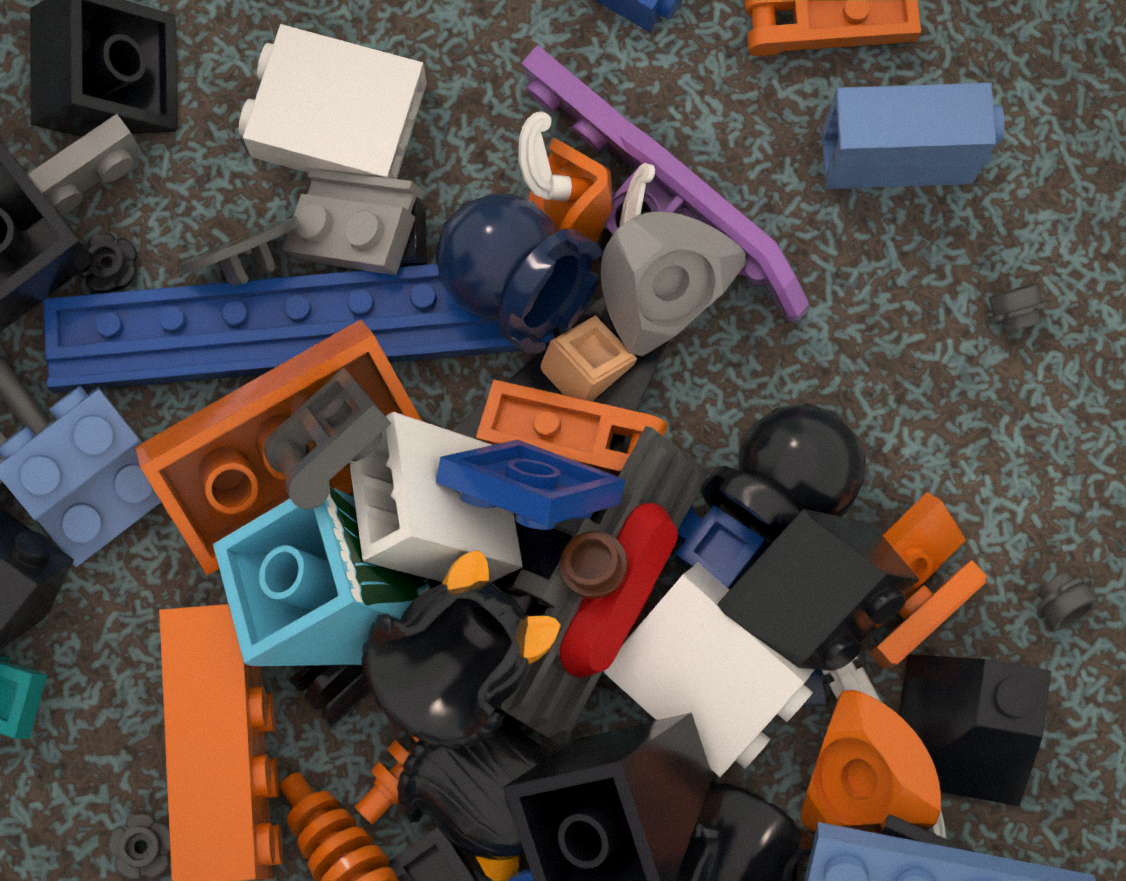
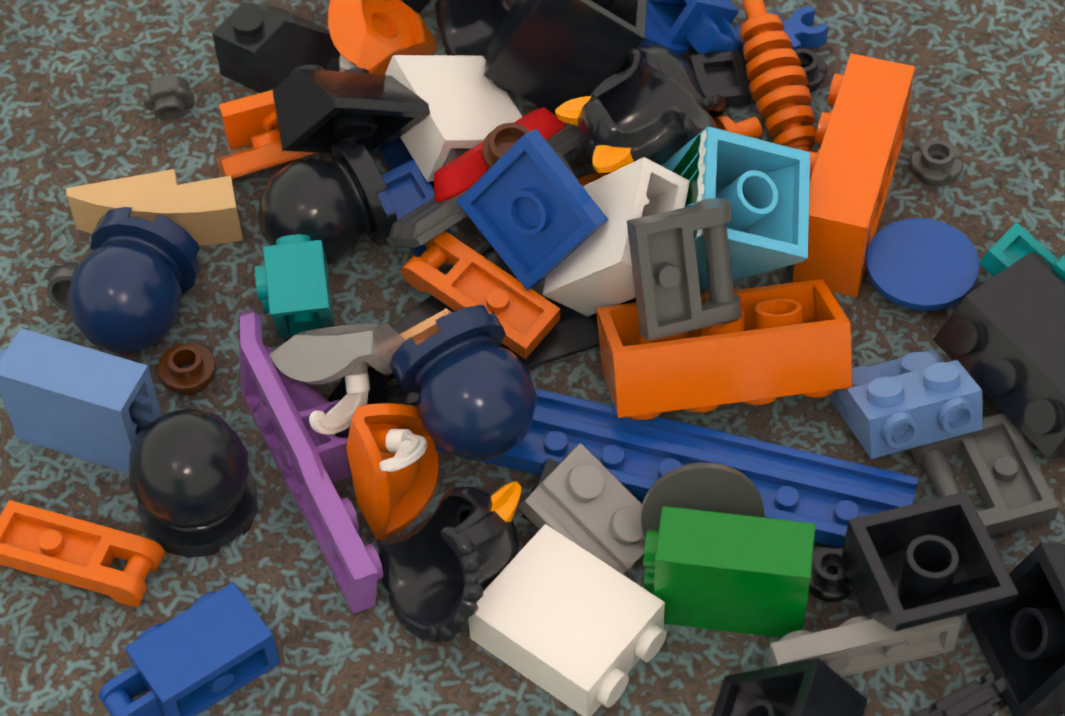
camera: 155 degrees left, 25 degrees down
(109, 671) = (922, 264): none -> blue piece
(189, 186) = (730, 571): none -> green brick
(461, 119) = (450, 560): none -> black hair
(751, 104) = (192, 483): none -> black tile
(757, 343) = (295, 285): none -> teal brick
(838, 272) = (189, 379): none -> reddish brown plate
(941, 293) = (132, 281): none -> dark blue tile
(975, 429) = (202, 207): none -> tan slope

